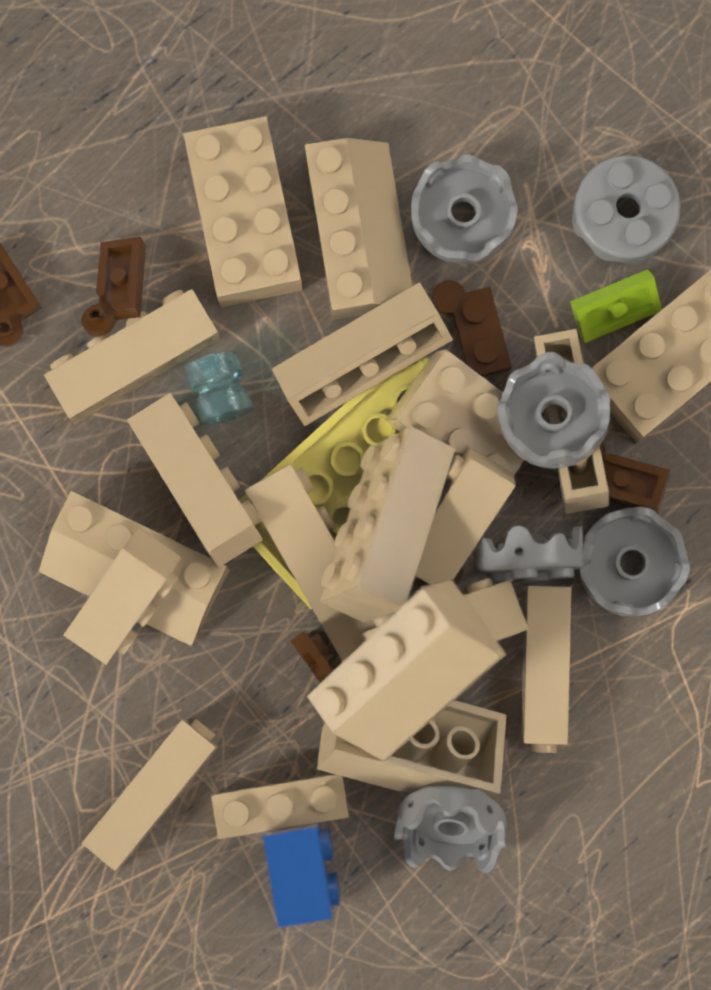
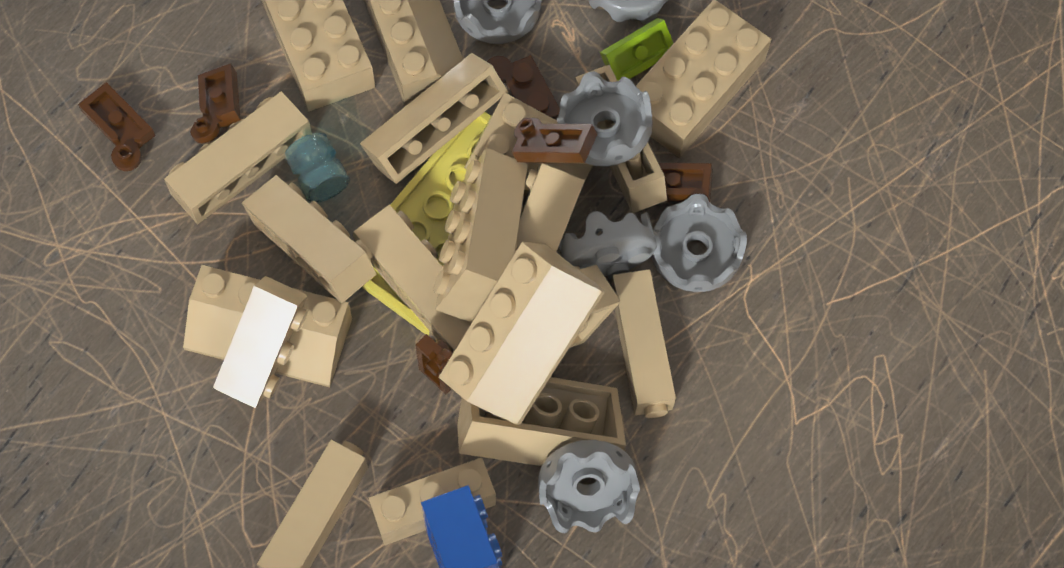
camera: 15 degrees left, 15 degrees down
(487, 435) = (552, 142): none -> reddish brown hinge

